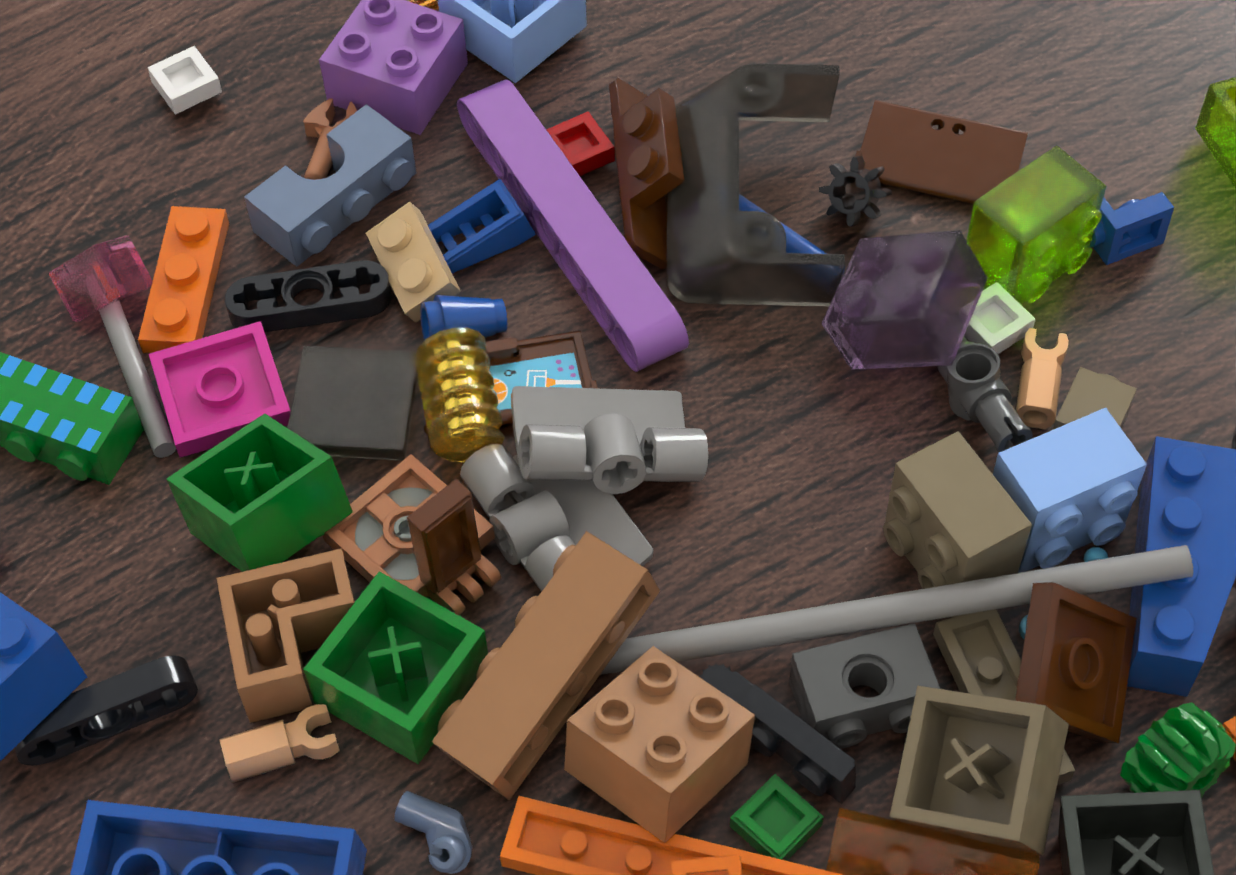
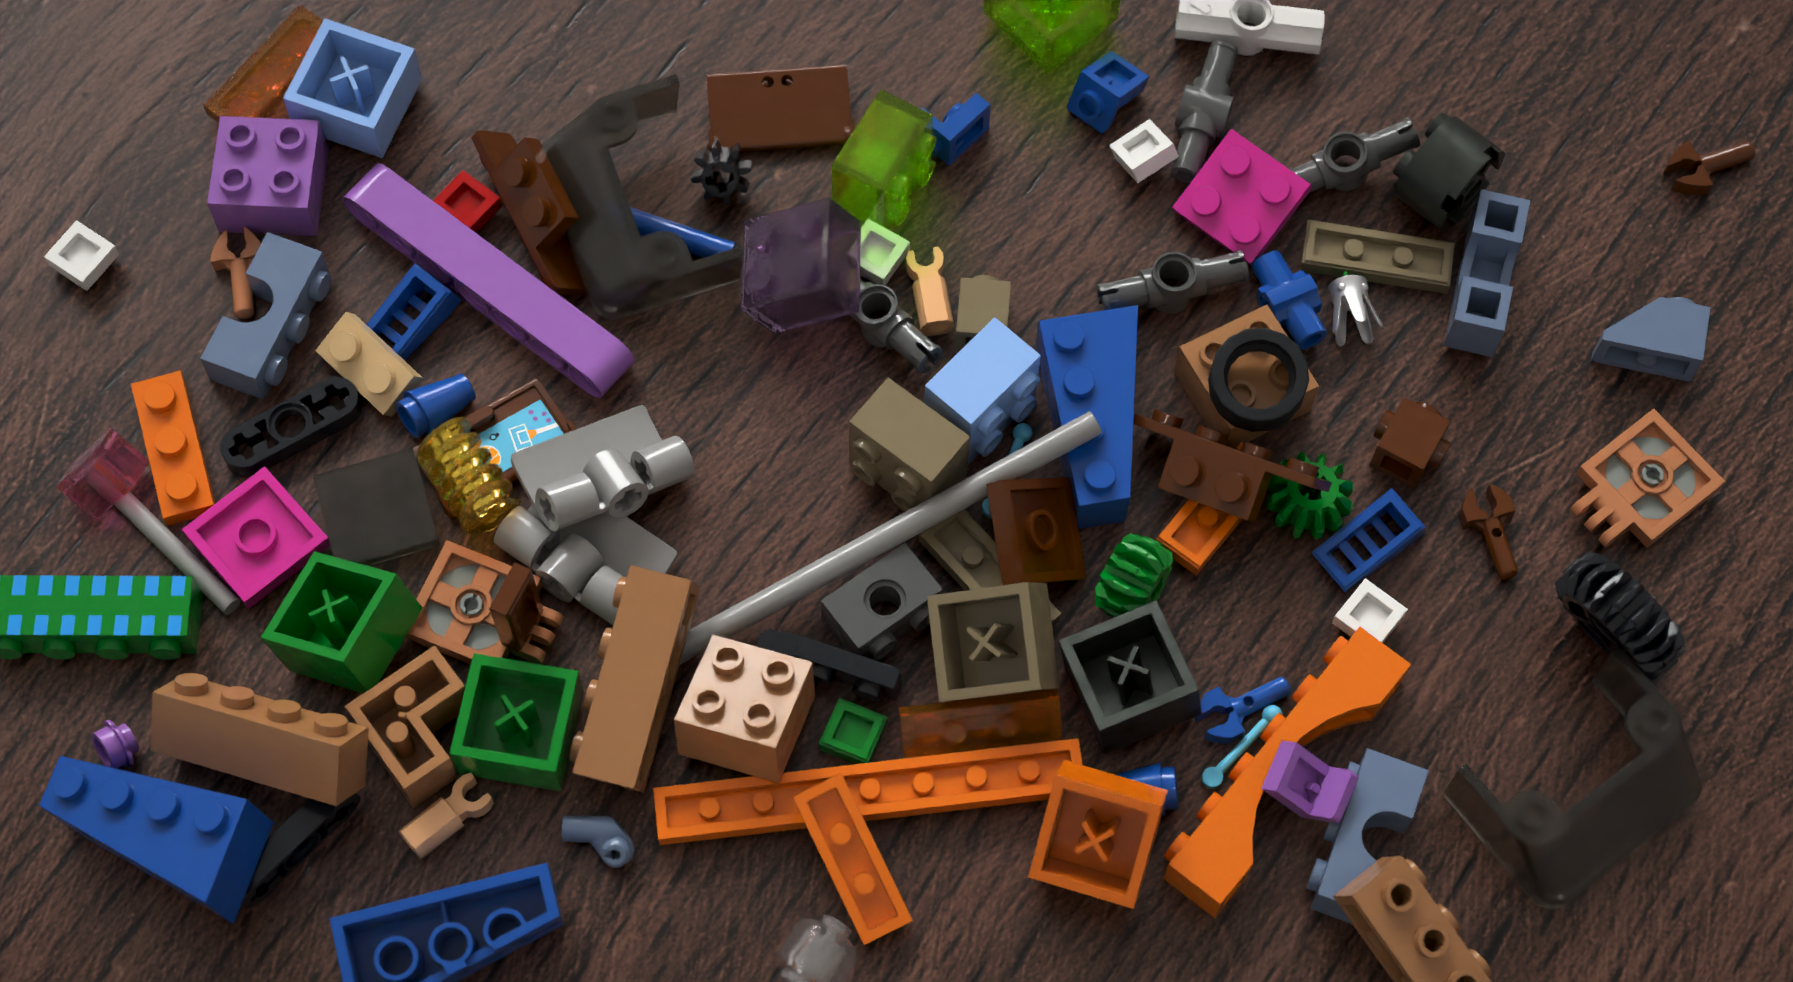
camera: 25 degrees left, 10 degrees up
(116, 583) = (259, 738): none -> medium nougat brick

